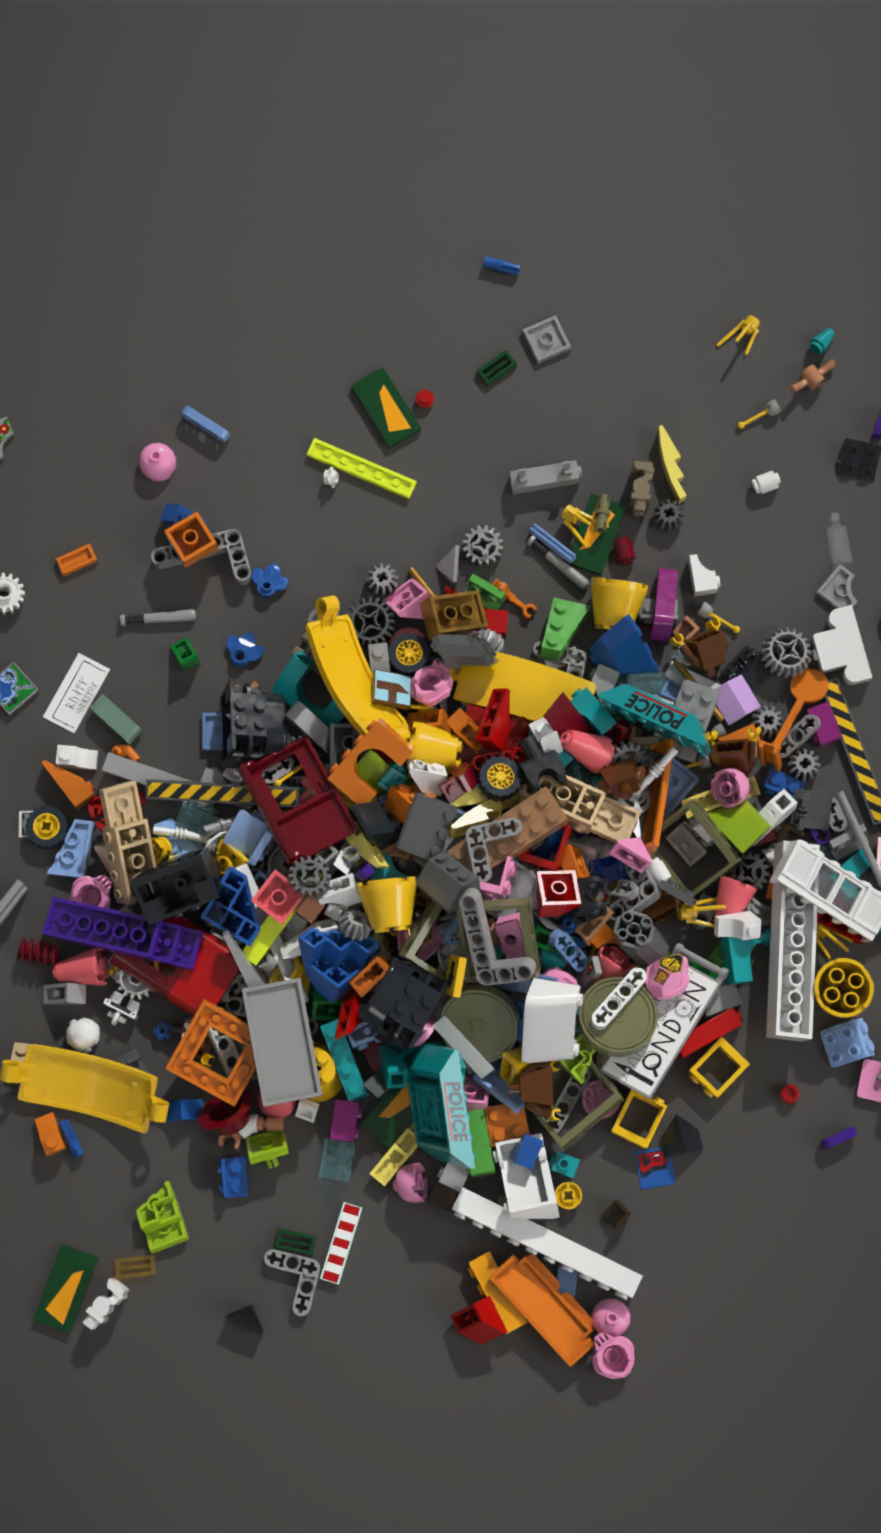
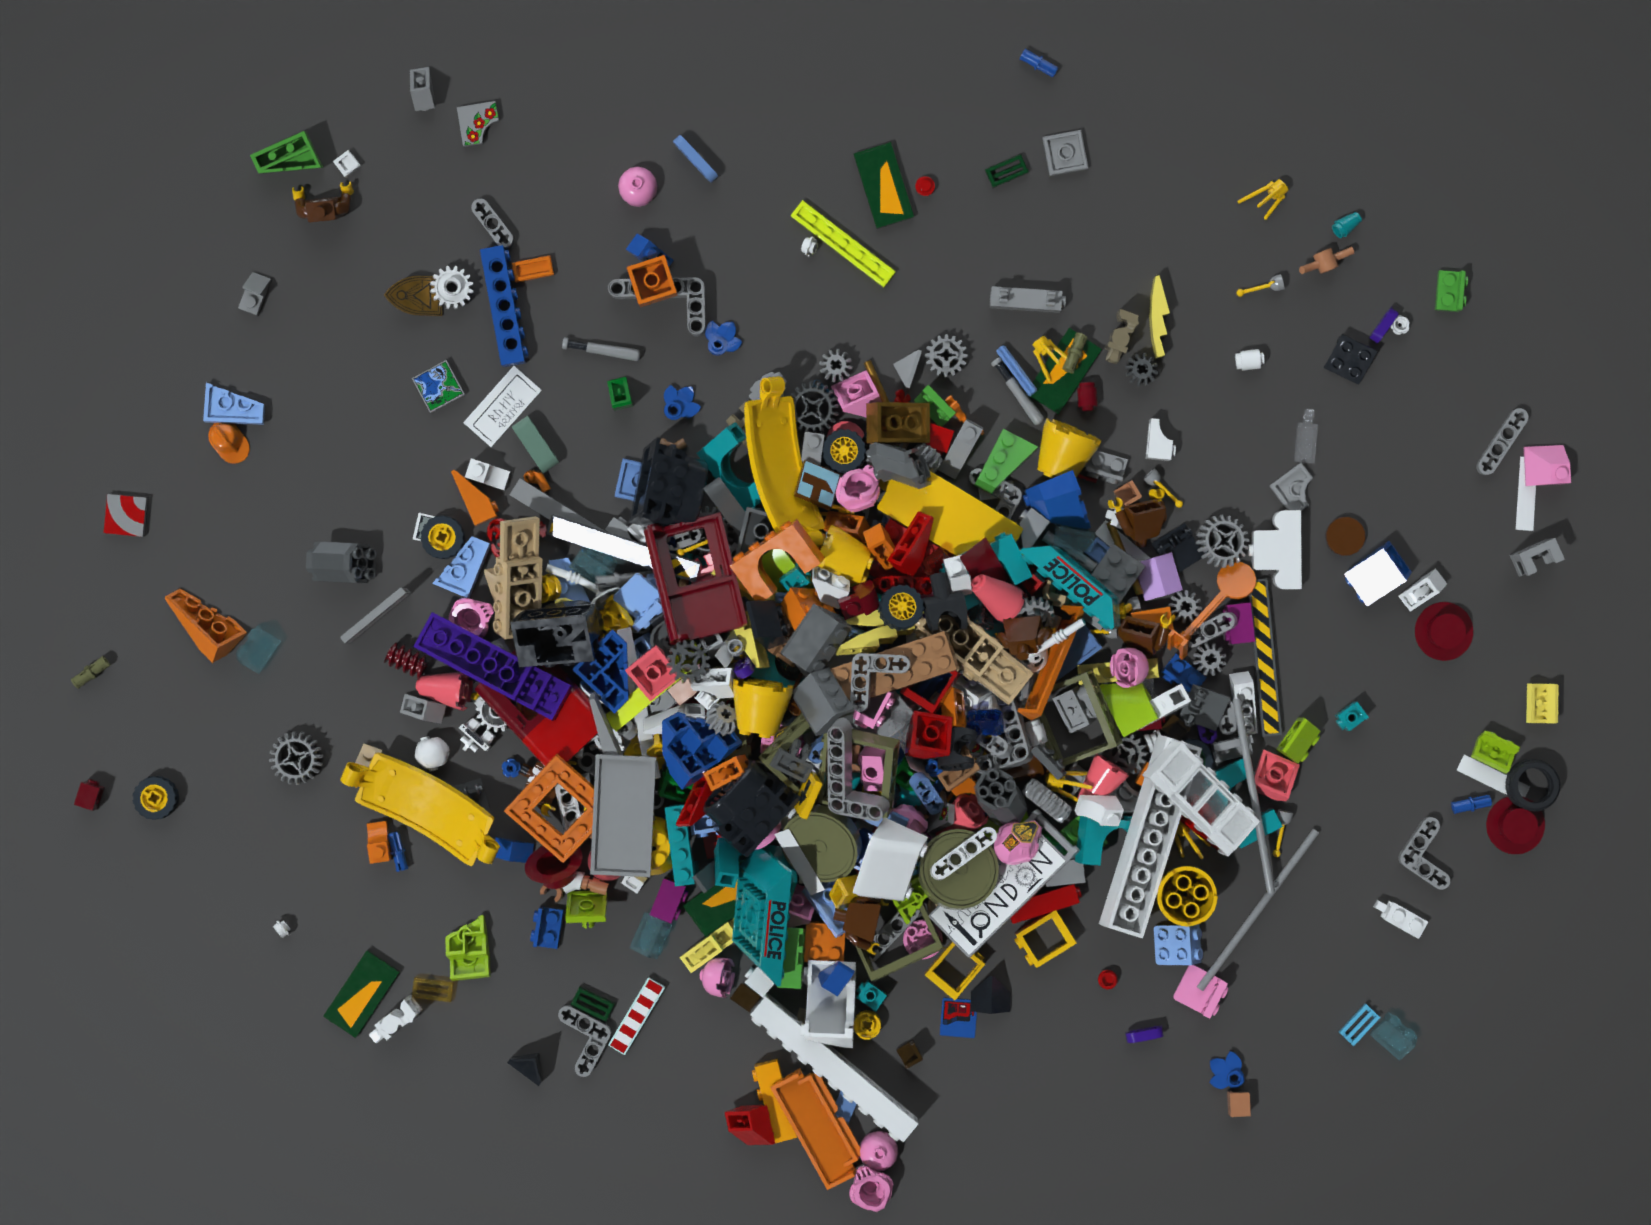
camera: 10 degrees right, 10 degrees up
(34, 557) = (490, 257): none -> blue brick
(43, 532) = (479, 215): none -> light grey beam
(432, 950) = (791, 764): none -> dark grey hinge
(518, 626) = (960, 448): none -> light grey slope
(632, 853) = (1013, 714): bright pink slope -> none
(664, 605) = (1112, 463): magenta beam -> none
(685, 933) = (1047, 800): none -> light grey gear
(843, 781) = (1243, 688): none -> white slope

